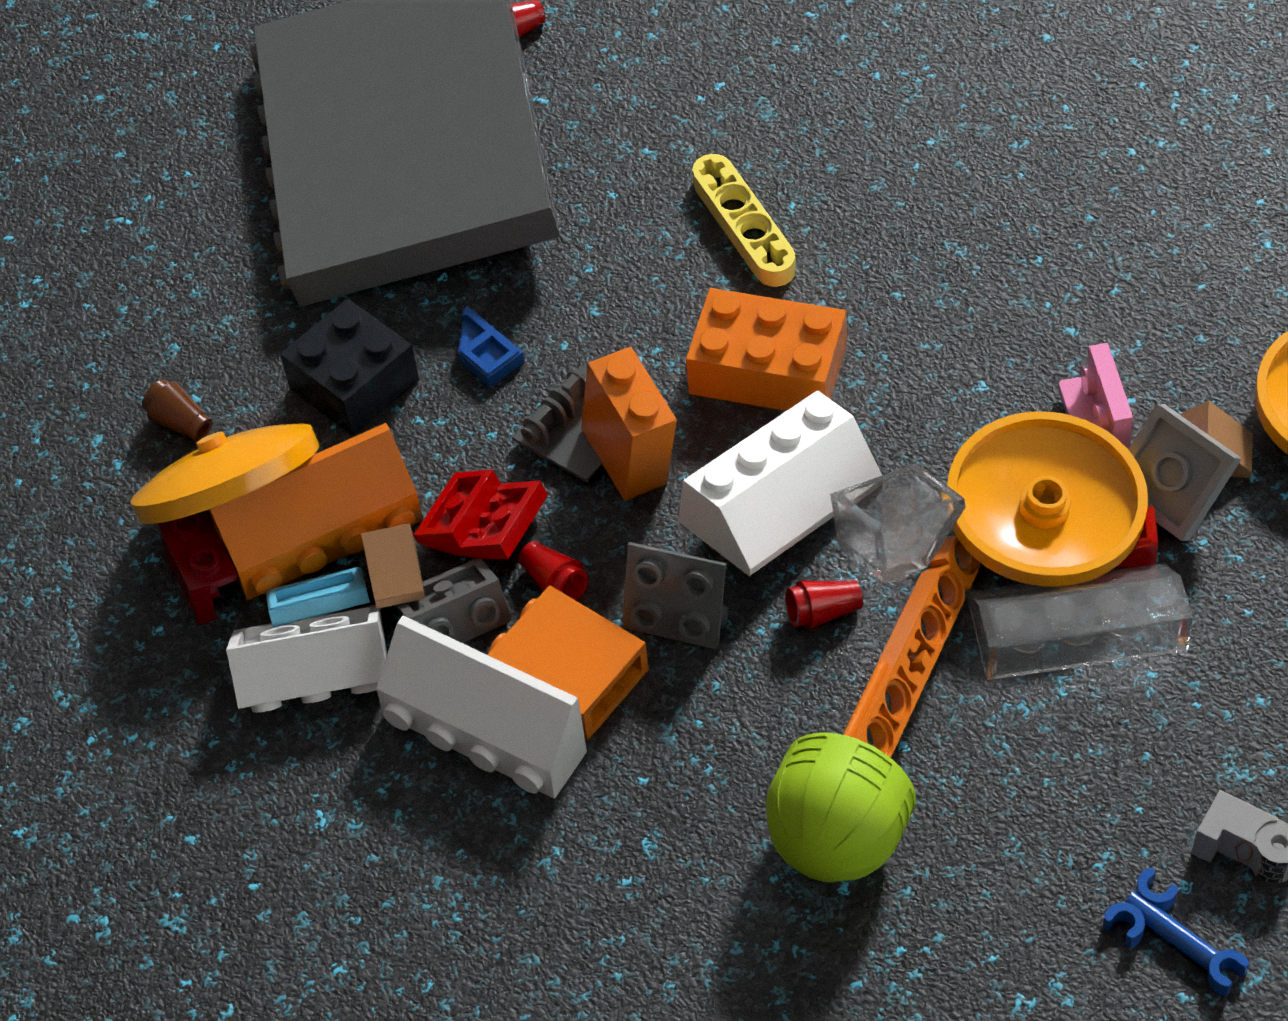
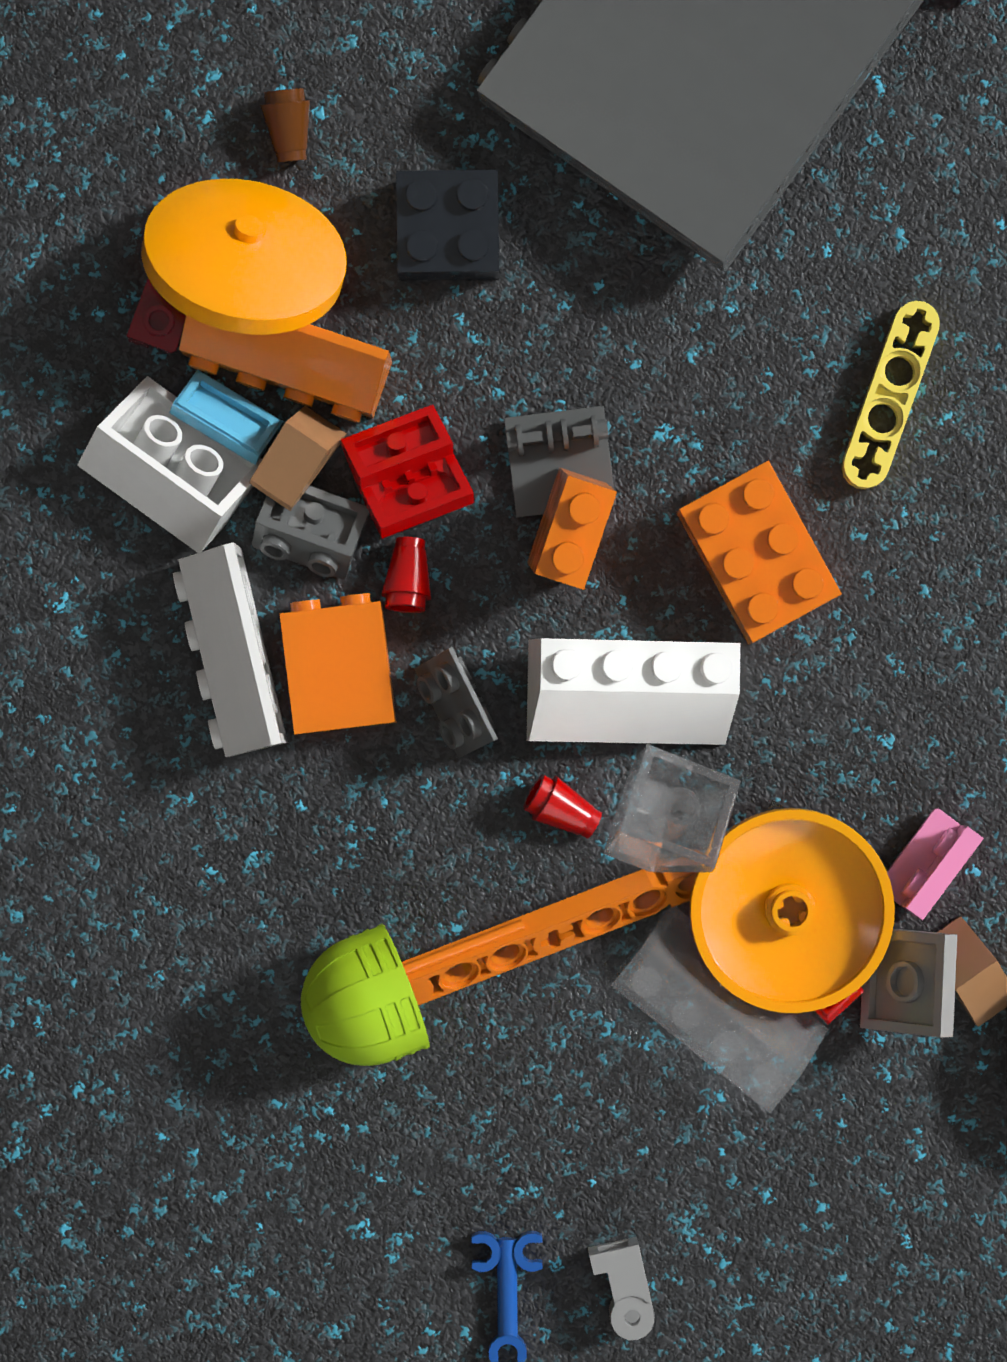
camera: 45 degrees right, 35 degrees up
(486, 350) = (570, 307): blue tile -> none

